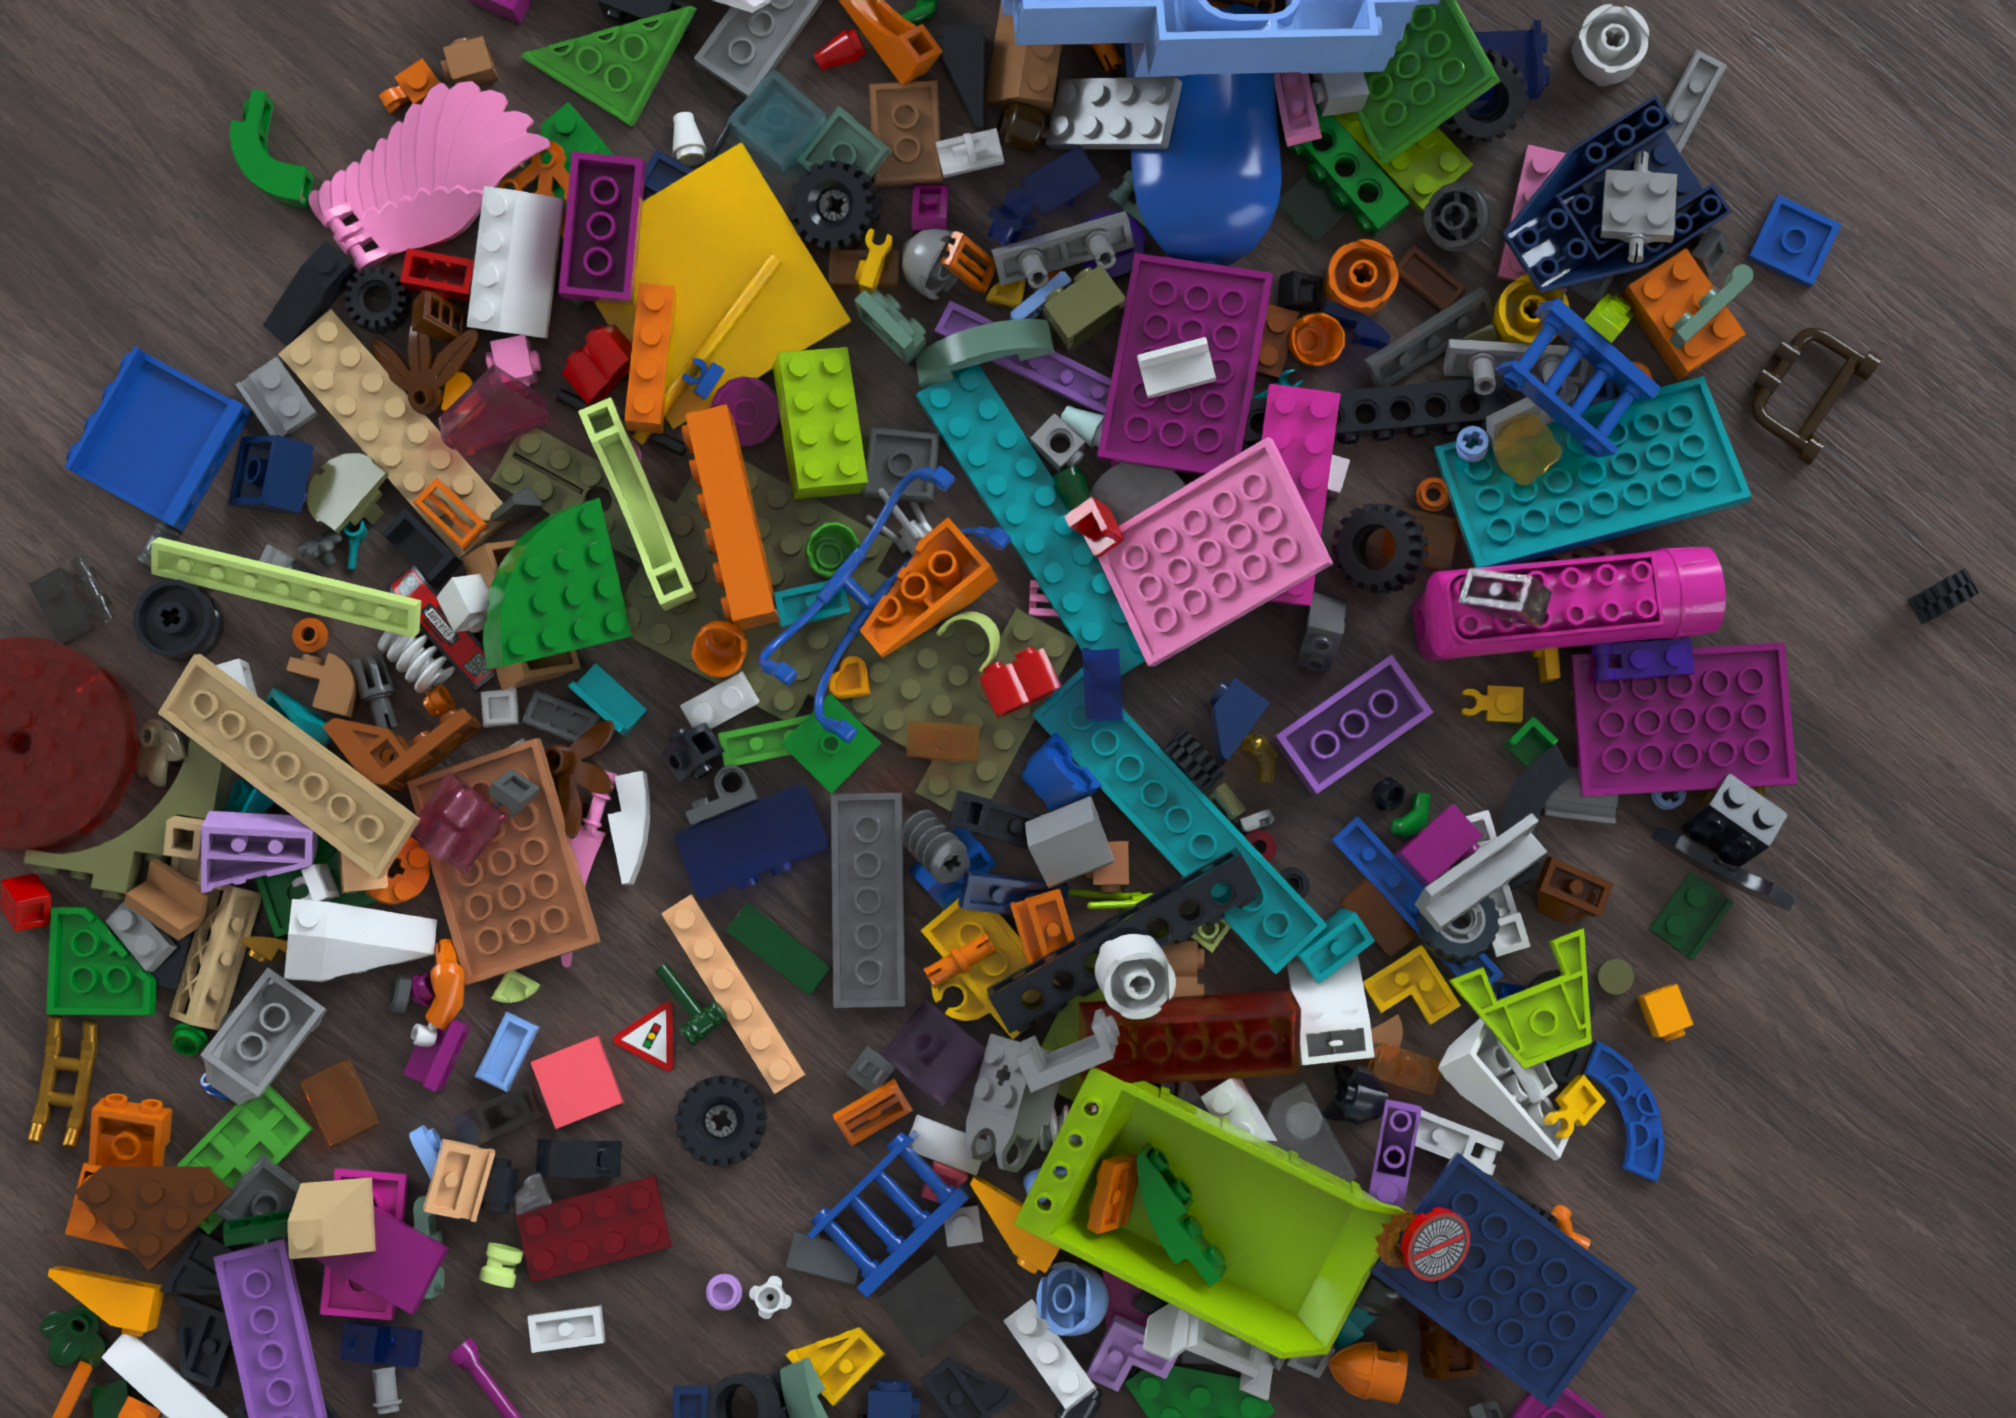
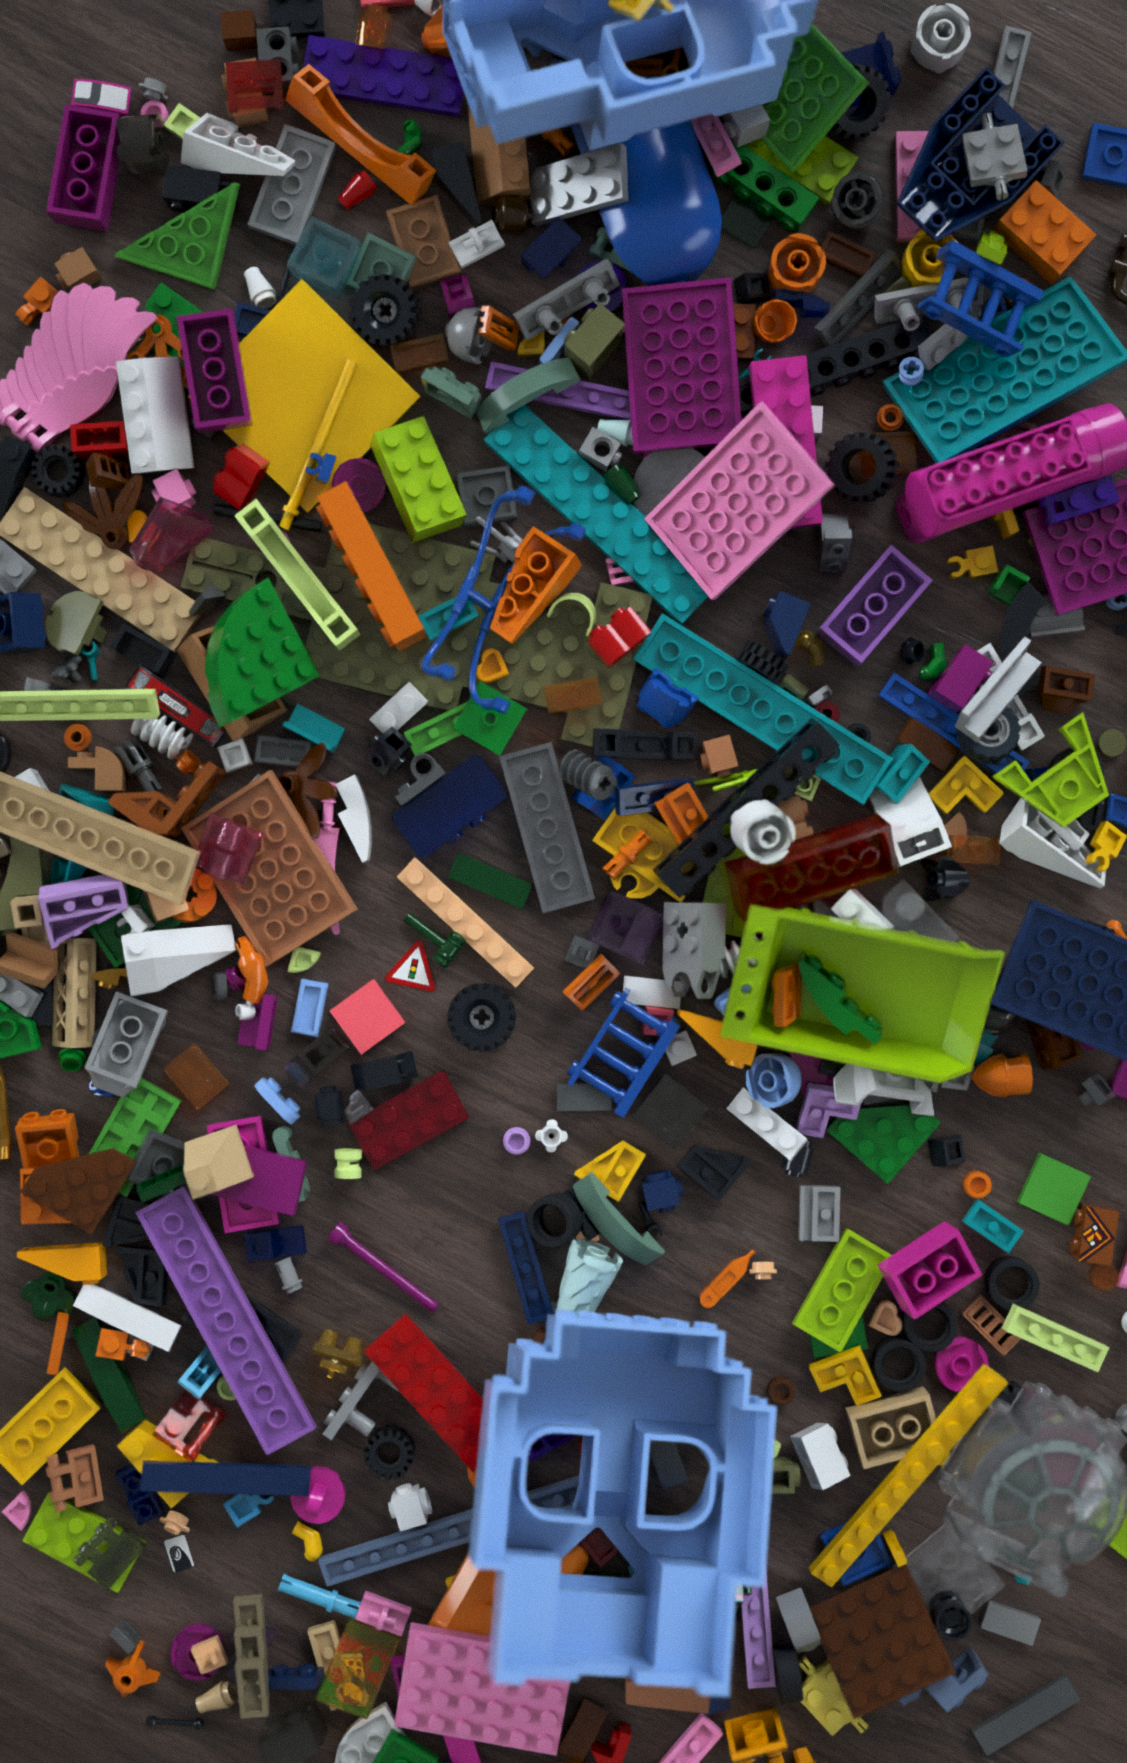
camera: 20 degrees left, 5 degrees up
(459, 1180) = (301, 1110): light nougat plate -> none
(465, 602) = (189, 682): white brick -> none
(472, 534) = (178, 630): orange tile -> none
(513, 792) = (263, 814): dark grey tile -> none
(566, 1328) = (408, 1197): white plate -> none
(649, 358) = (277, 461): orange arch -> none
(719, 649) = (388, 668): orange hair -> none
(829, 548) = (451, 571): bright green hair -> none
(870, 271) = (425, 353): yellow plate -> none
(1012, 216) = (521, 284): clear blue hips -> none
(1047, 1069) = (733, 904): light grey panel -> none
(1068, 842) = (686, 746): light grey slope -> none
(1097, 526) = (645, 504): red panel -> none
(1102, 685) = (681, 622): clear blue panel -> none
(1176, 367) = (677, 367): white panel -> none
(1388, 1248) = (1017, 973): clear orange gear -> none
(1395, 1152) = (983, 912): medium lavender slope -> none
(1435, 1244) = (1034, 970): tile -> none
(1448, 1137) = (1017, 892): white plate -> none
(1506, 596) = (972, 475): clear smoke slope -> none
(1526, 449) = (953, 363): clear yellow piece -> none
(1711, 305) = (1067, 217): sand green plate -> none

